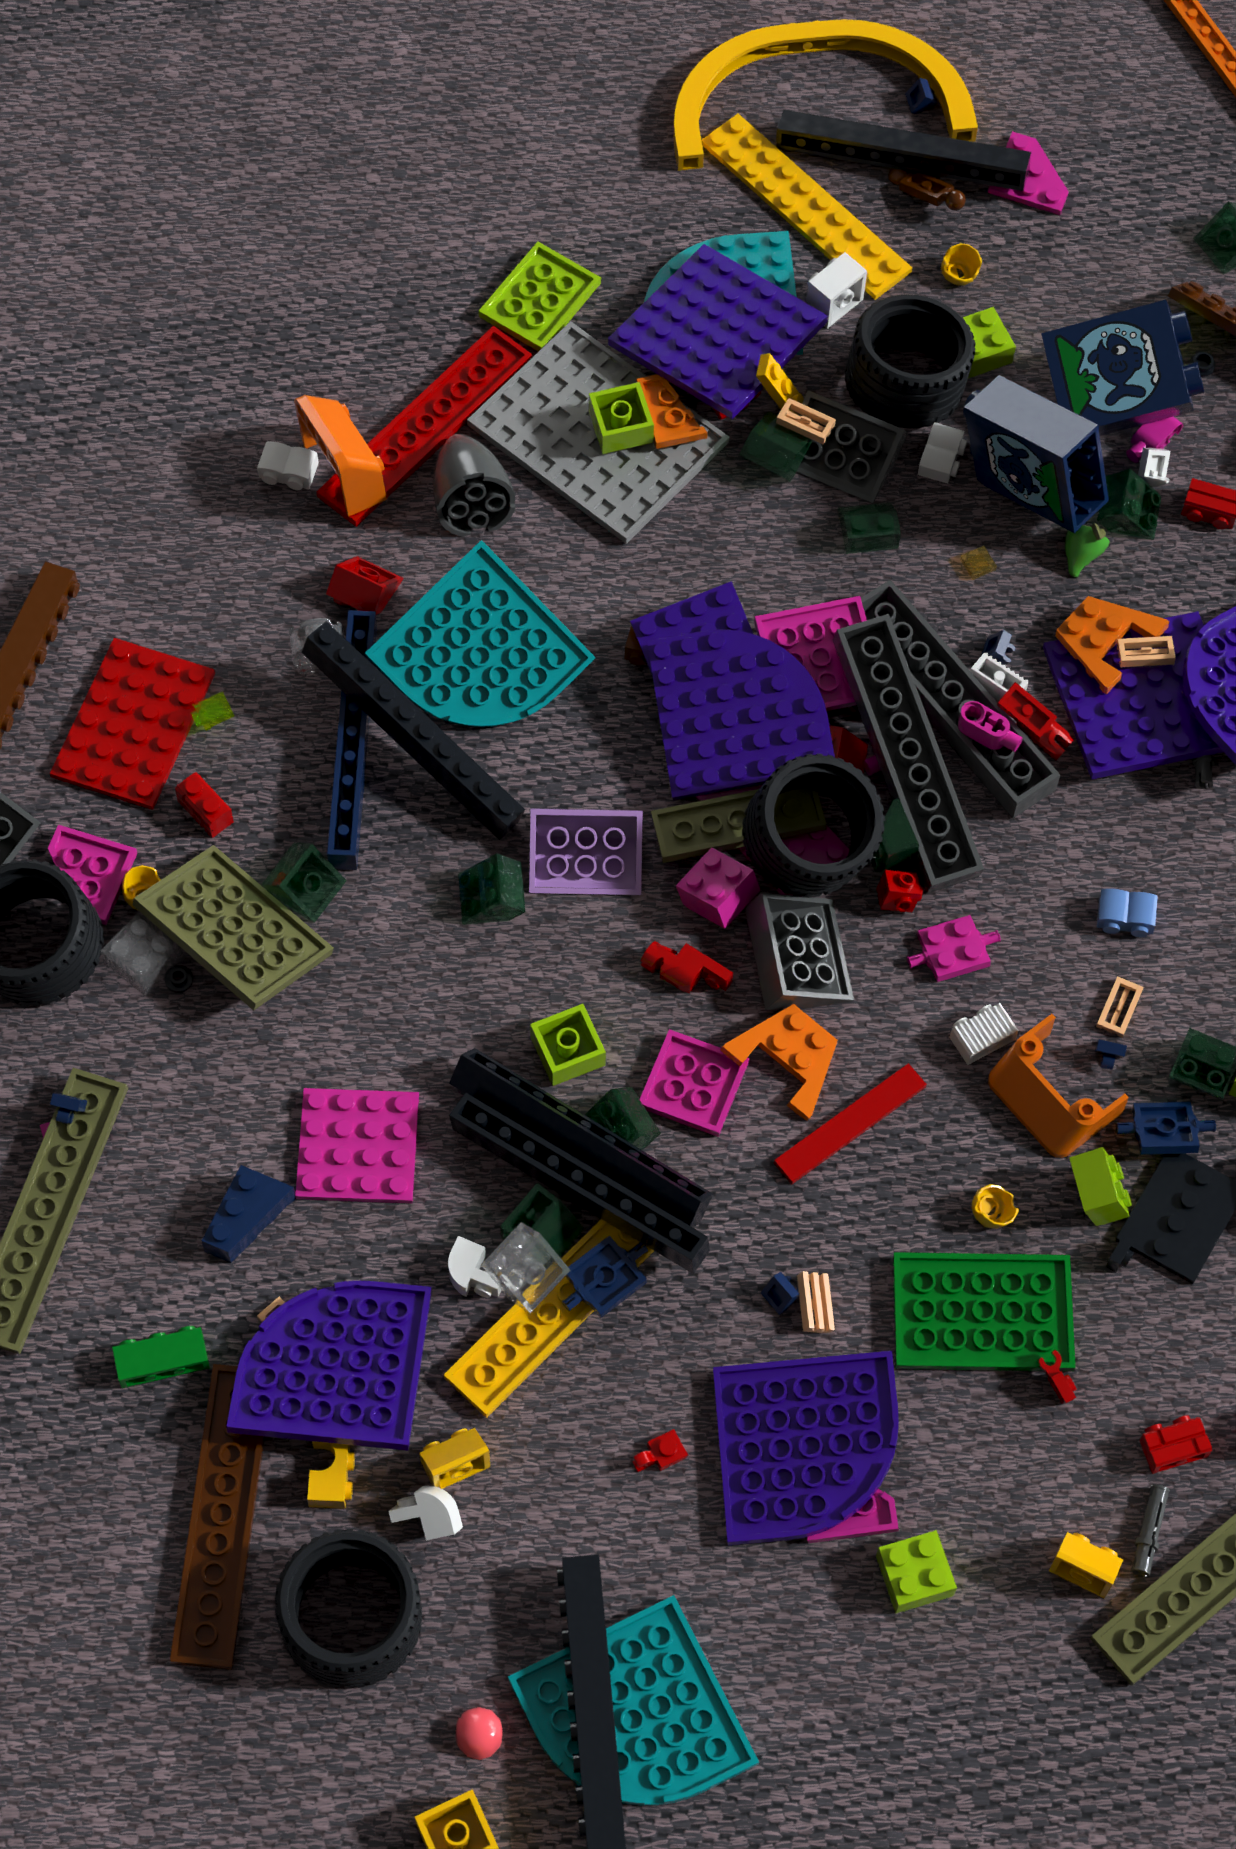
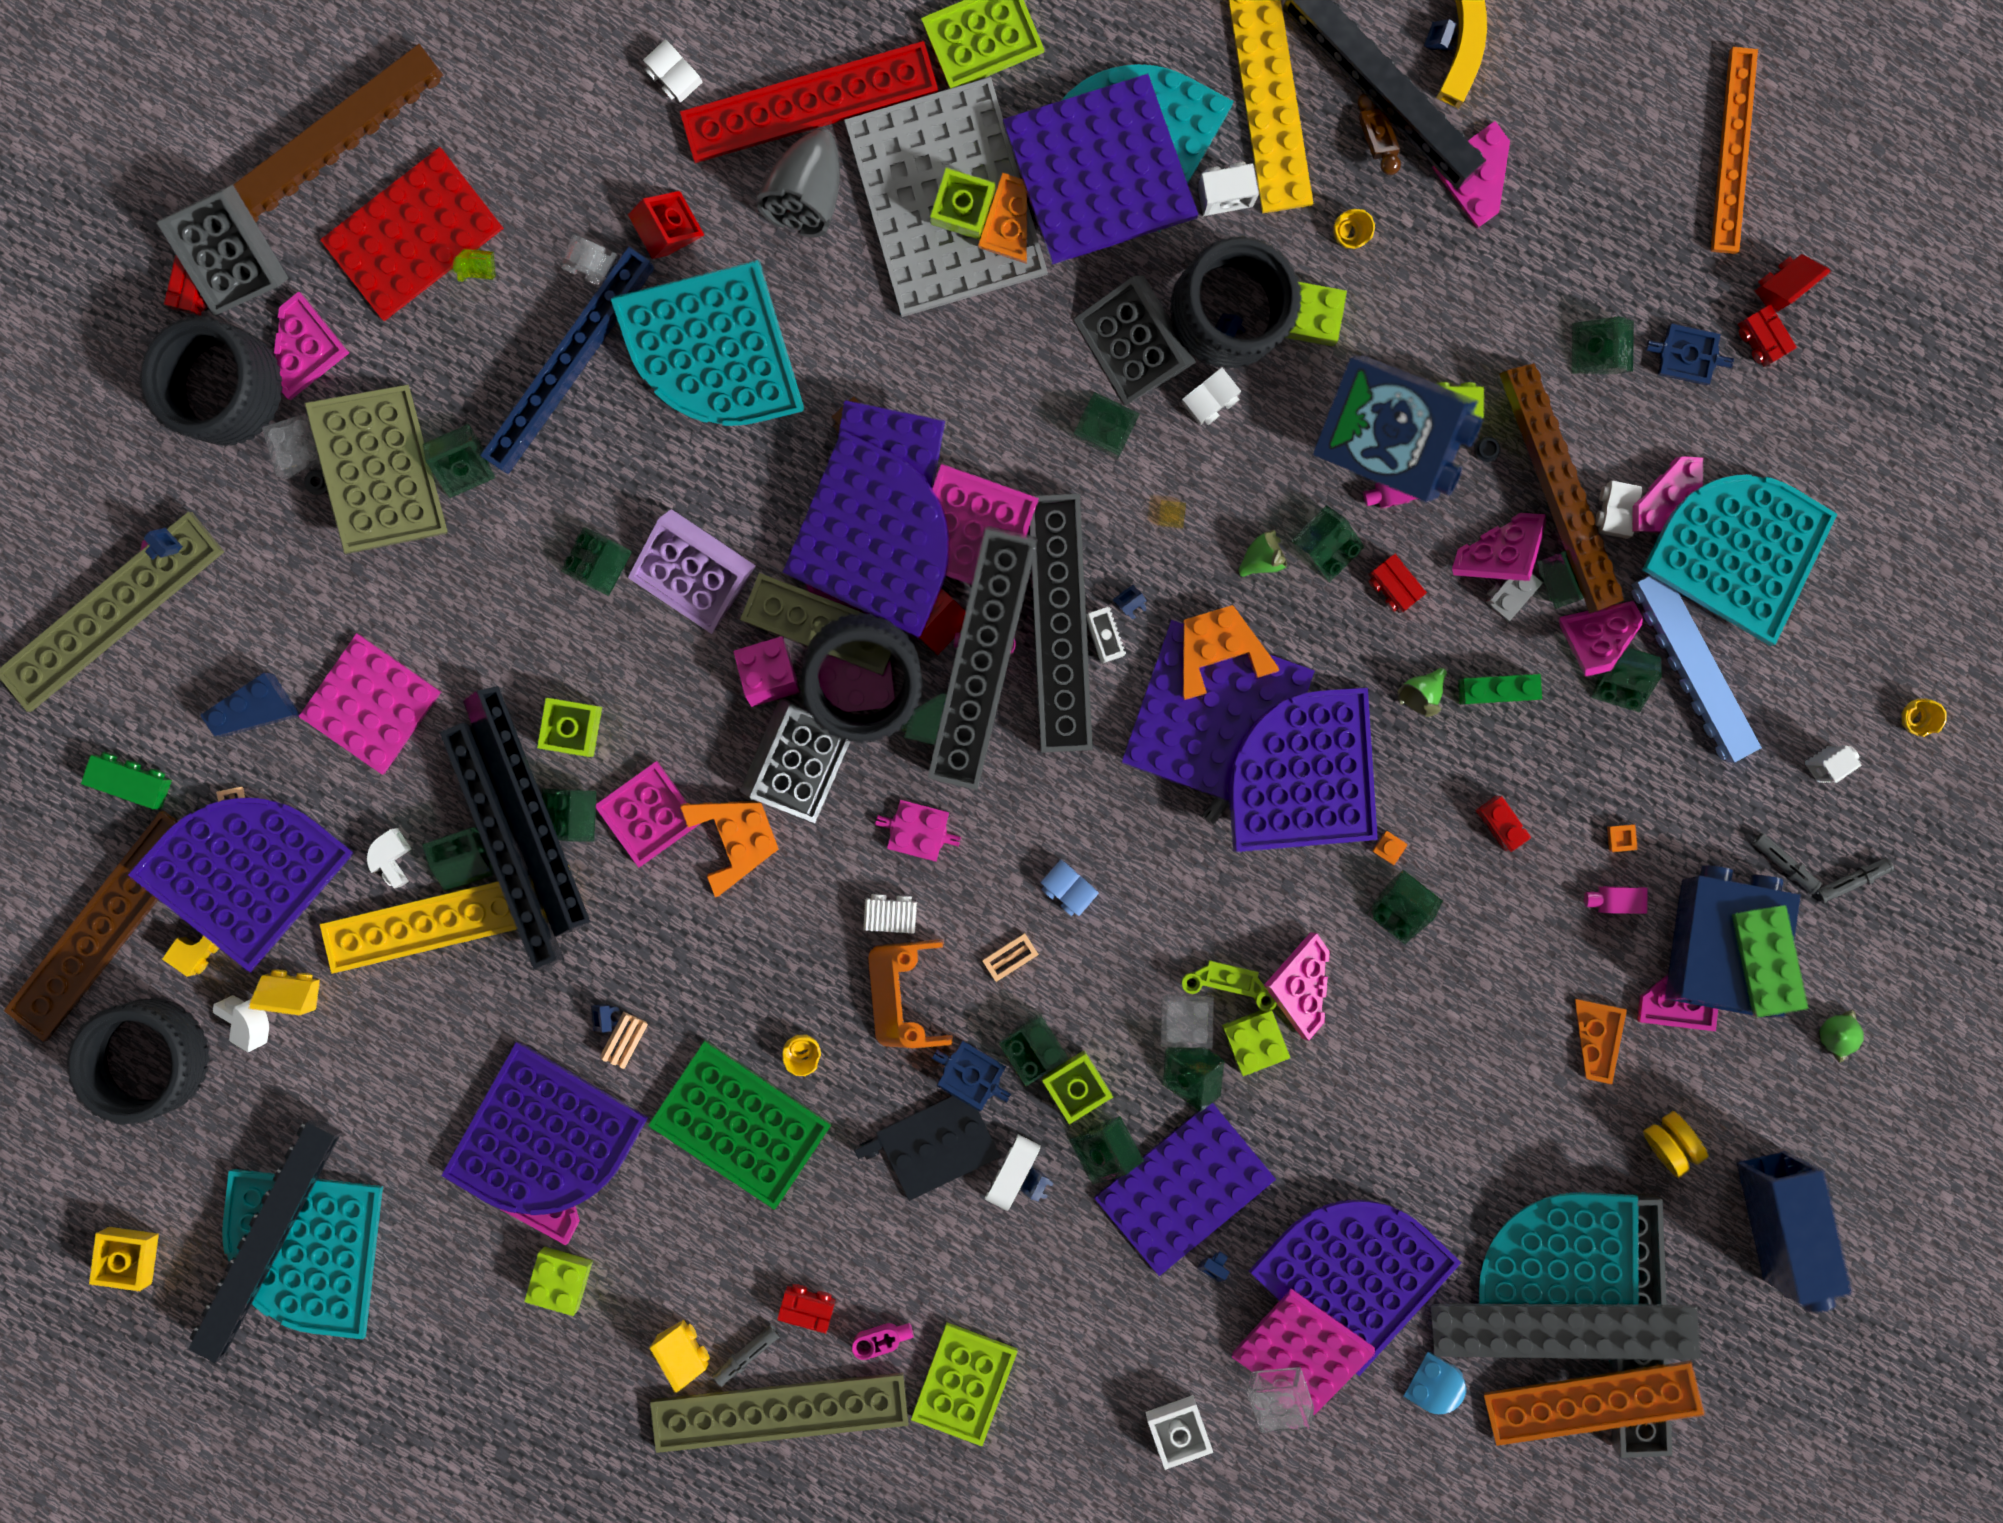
camera: 35 degrees right, 25 degrees up
(137, 881) = (328, 379): yellow hair -> none
(204, 804) = (420, 345): red brick -> none
(359, 471) = (708, 91): orange windscreen -> none
(412, 730) = (610, 387): black brick -> none
(479, 1733) = (188, 1193): coral hair -> none
(525, 1267) = (416, 891): clear brick -> none
(605, 1276) = (476, 929): dark blue plate -> none
(663, 1450) = (444, 1078): red plate -> none
(686, 967) = (701, 719): red plate -> none
(775, 447) = (1077, 308): clear green slope -> none
(776, 381) = (1112, 256): yellow plate -> none
(804, 425) = (1101, 284): light nougat tile -> none
(850, 1123) = (744, 919): red tile -> none
(899, 891) = (905, 761): red brick -> none
(995, 731) = (1068, 699): dark pink piece -> none
(1035, 720) = (1108, 689): red plate -> none
(1036, 453) = (1268, 461): dark blue brick -> none
(1062, 1385) = (755, 1215): red plate -> none
(1100, 1186) = (884, 1094): lime brick -> none
(1110, 1051) = (974, 989): dark blue tile -> none
(1147, 655) = (1222, 673): light nougat tile -> none
(1154, 466) = (1373, 522): white plate -> none

